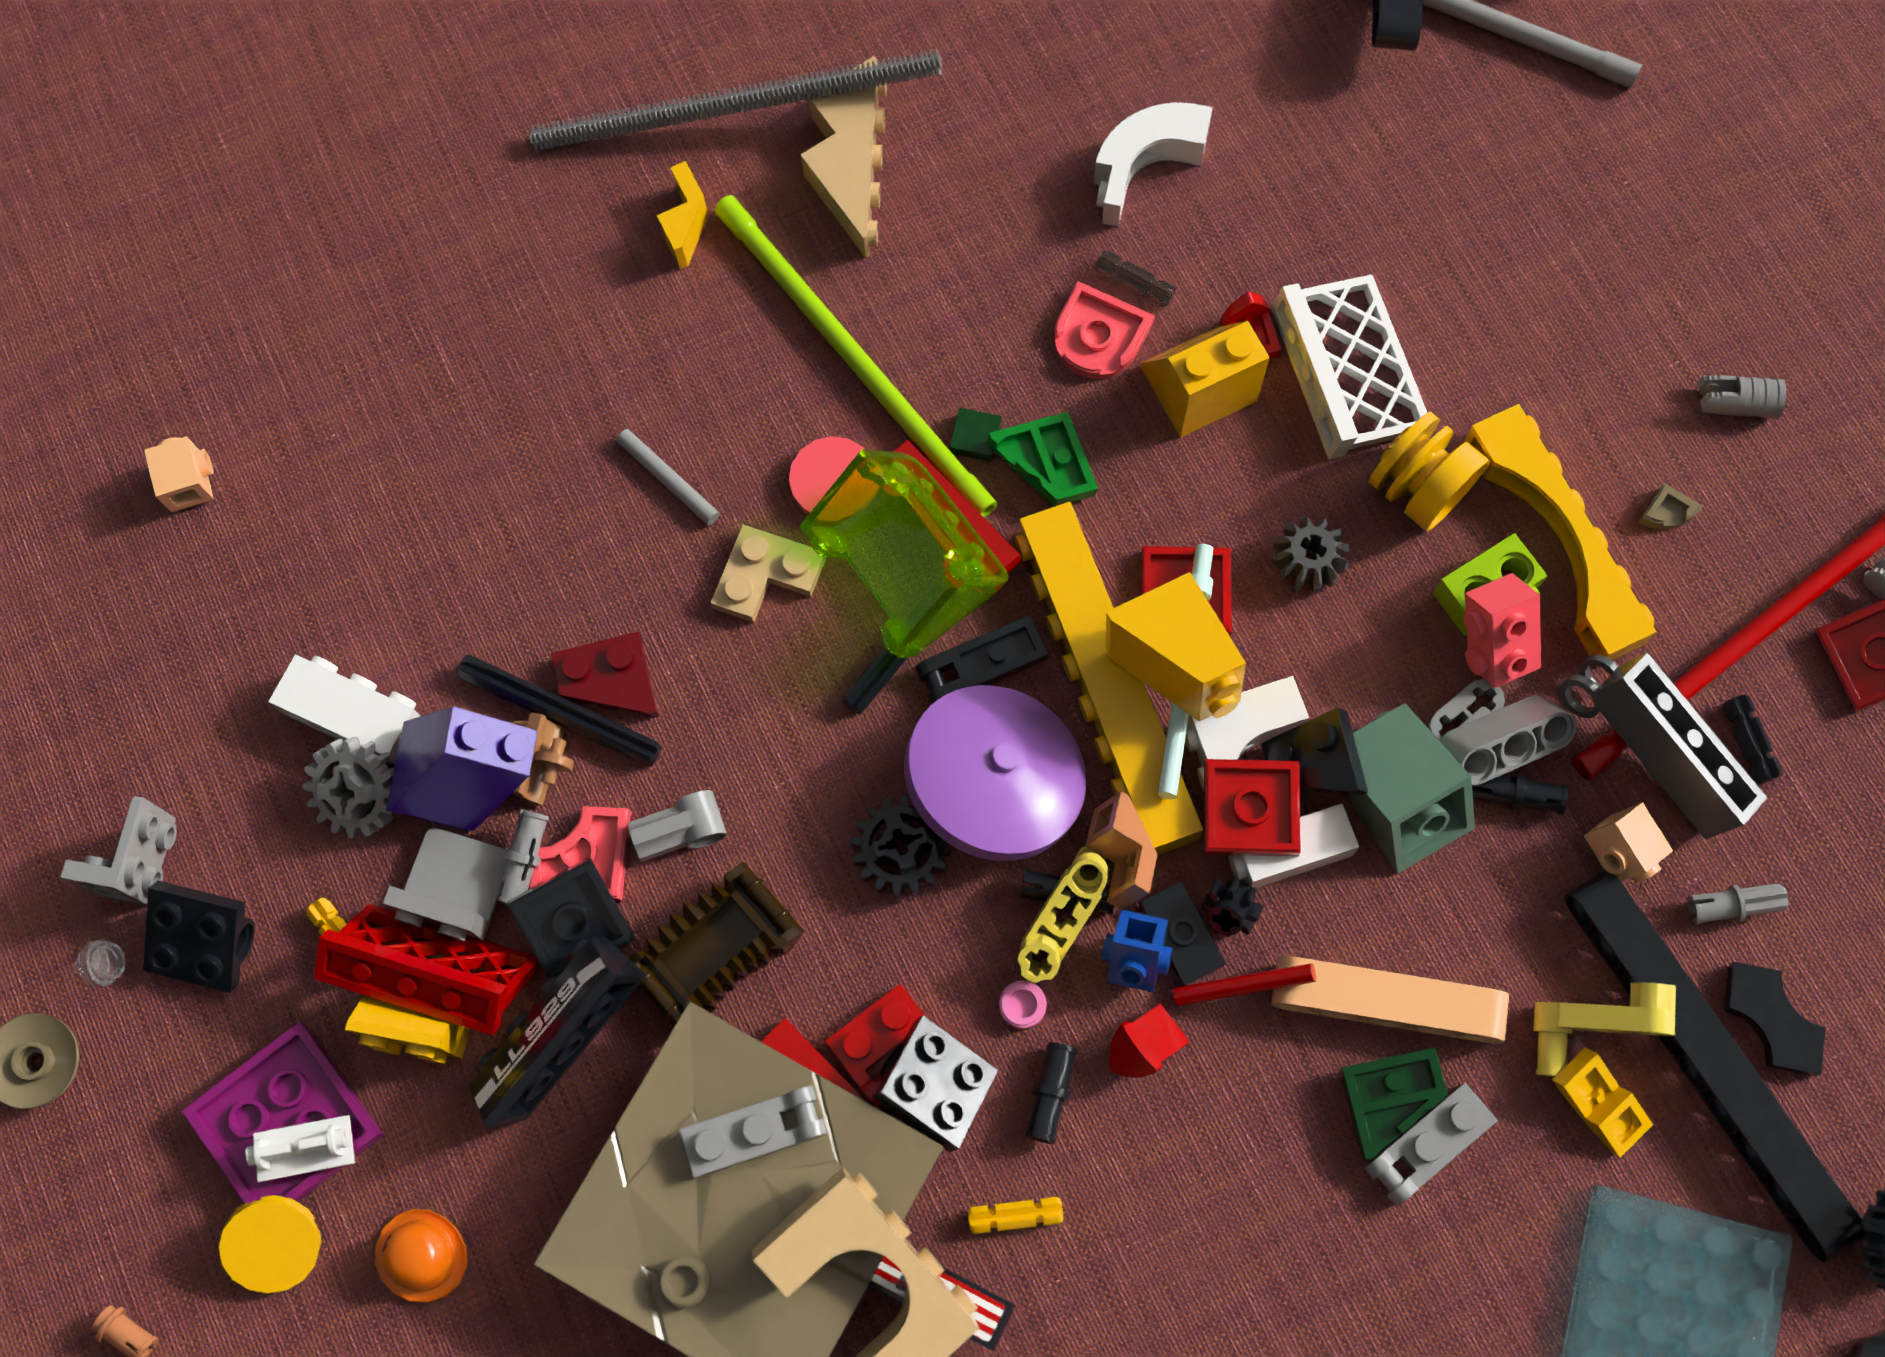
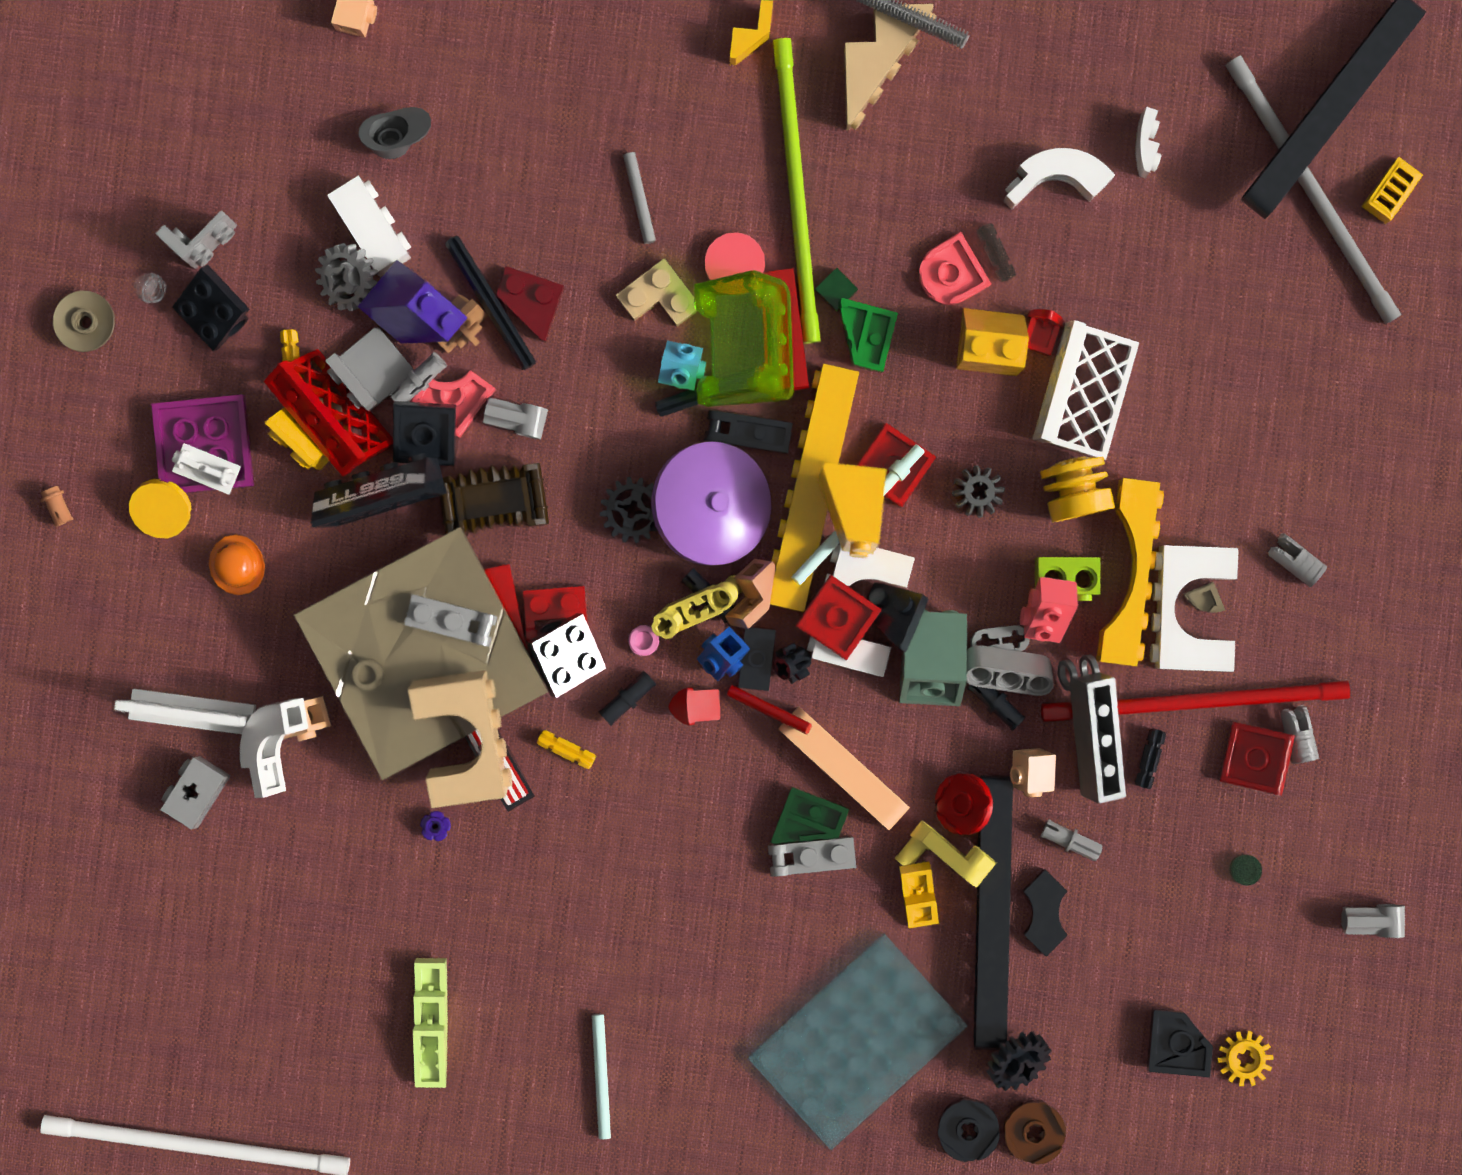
camera: 30 degrees right, 15 degrees up
(314, 580) = (394, 131): none -> dark grey piece
(847, 631) = (681, 365): none -> medium azure brick
(1220, 63) = (1146, 150): none -> white slope
(1574, 943) = (963, 804): none -> red tile
(1674, 583) = (1173, 645): none -> white arch

